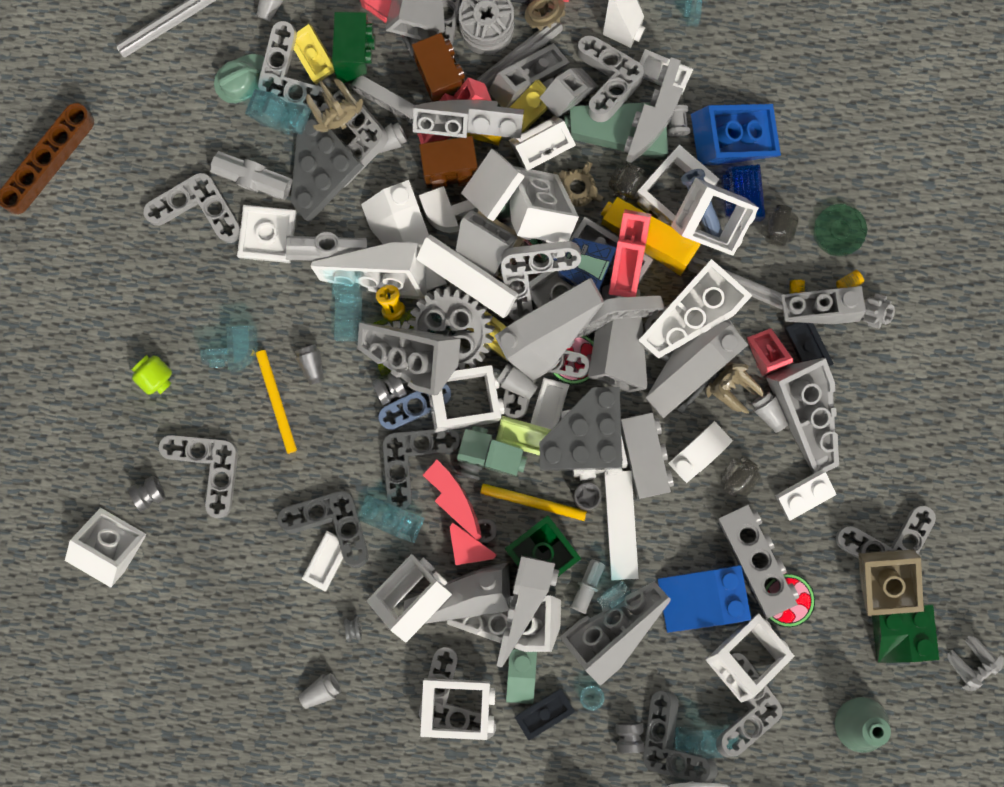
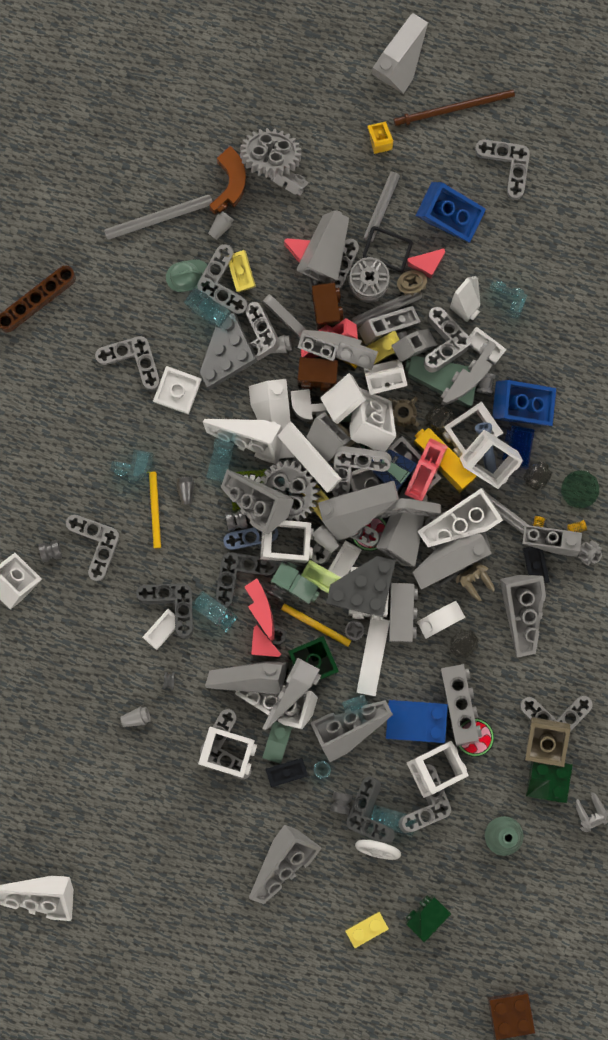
camera: 10 degrees right, 0 degrees up
(152, 375) = (73, 469): lime head -> none
(251, 175) = (176, 347): light grey piece -> none
(313, 247) = (206, 409): light grey piece -> none
(339, 112) = (249, 320): dark tan piece -> none
(352, 45) = (270, 274): dark green slope -> none
(394, 302) = (255, 461): yellow bush -> none
(397, 587) = (208, 659): white window -> none
(588, 586) = (339, 692): light grey axle -> none
(769, 352) = (506, 562): coral slope -> none
(770, 411) = (497, 604): light grey cone -> none
(805, 494) = (506, 668): white plate -> none

